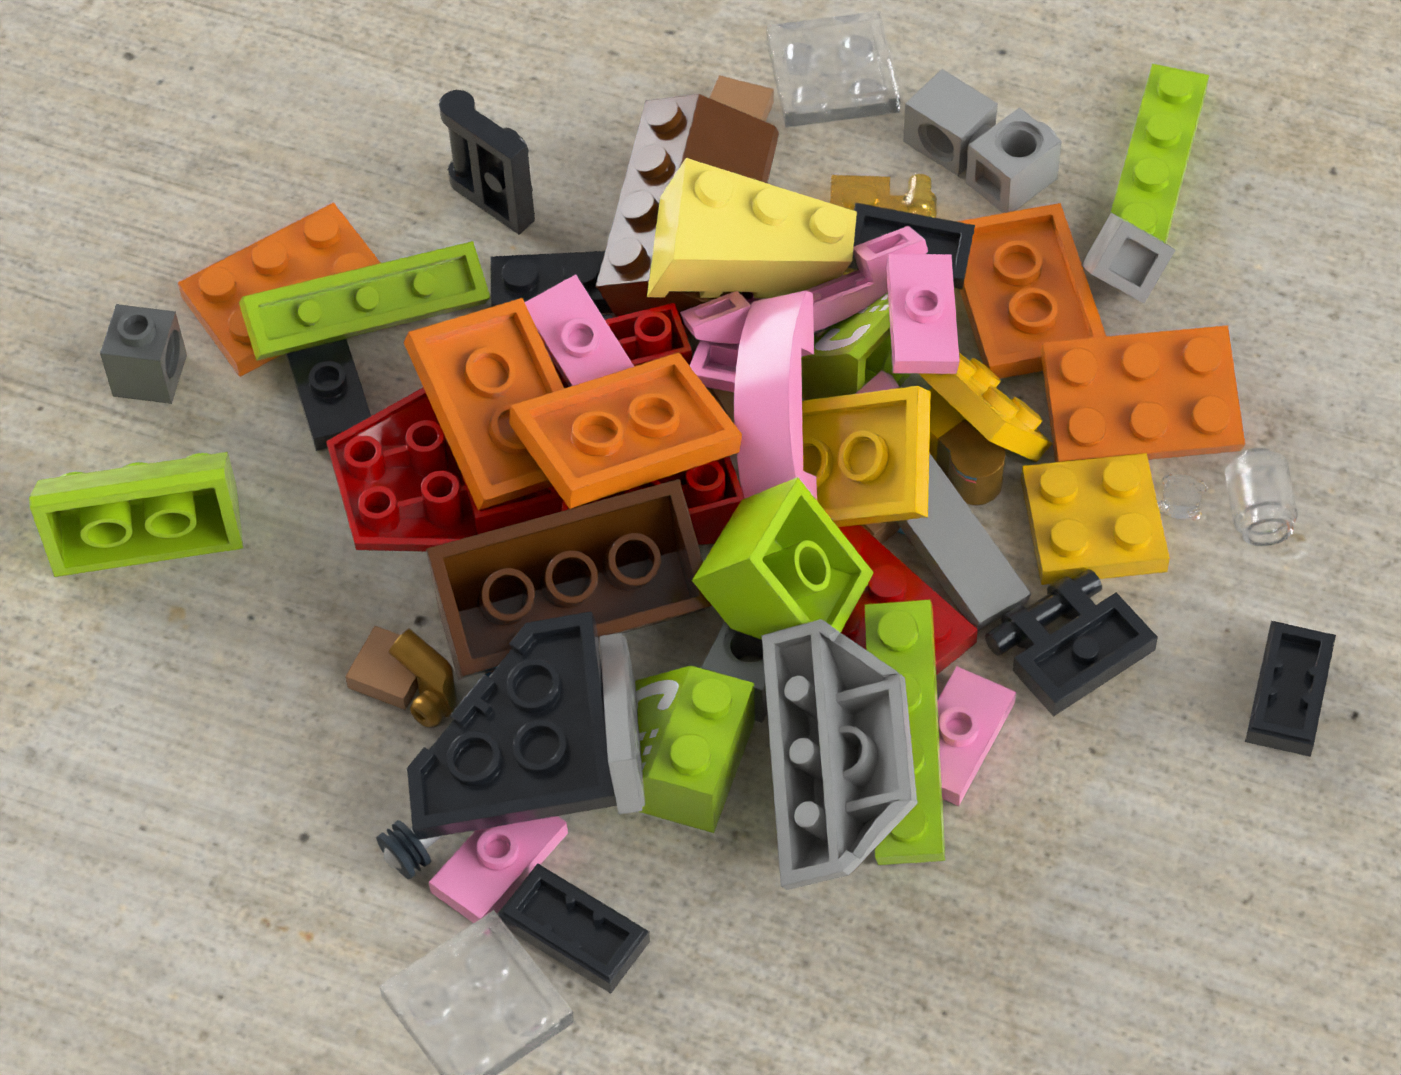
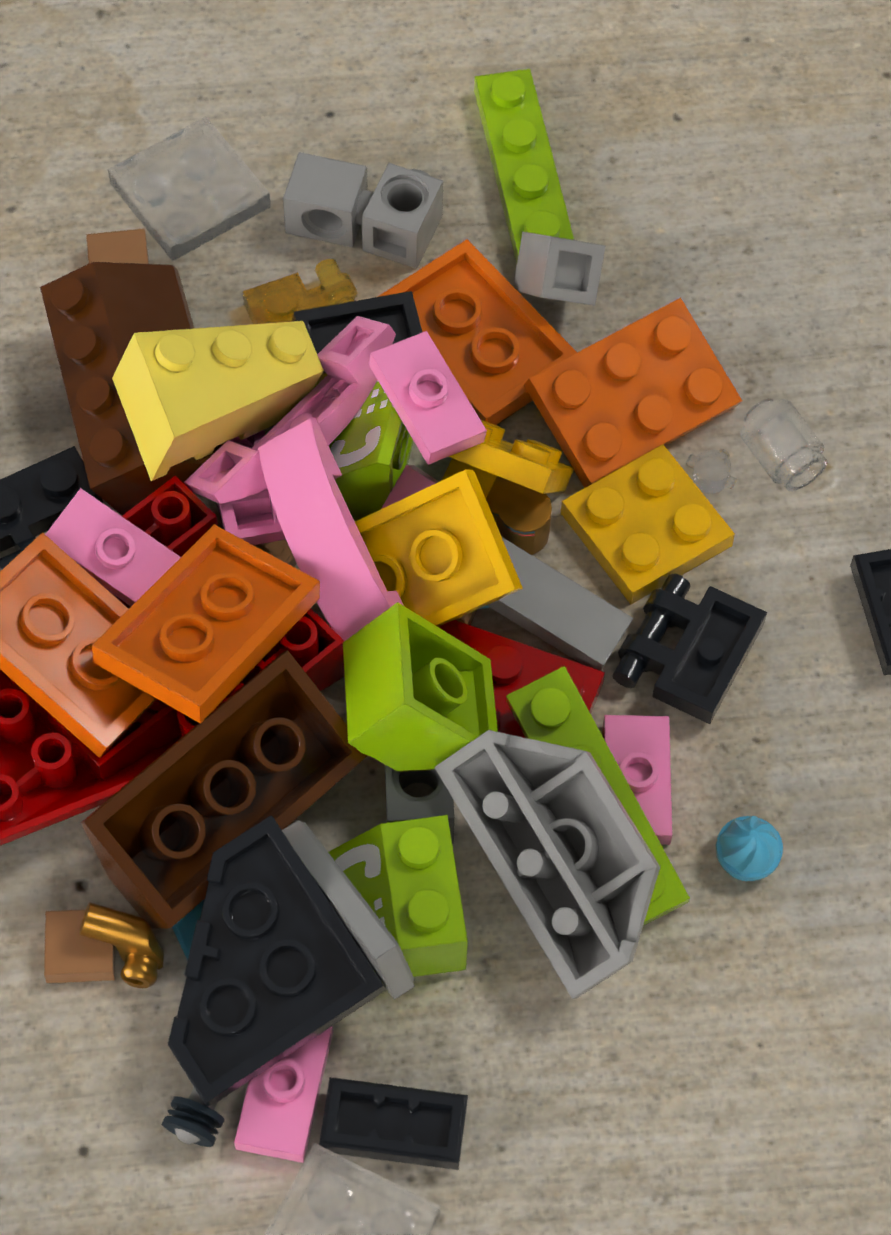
camera: 30 degrees left, 5 degrees up
(1026, 837) = (749, 848): none -> medium azure plate

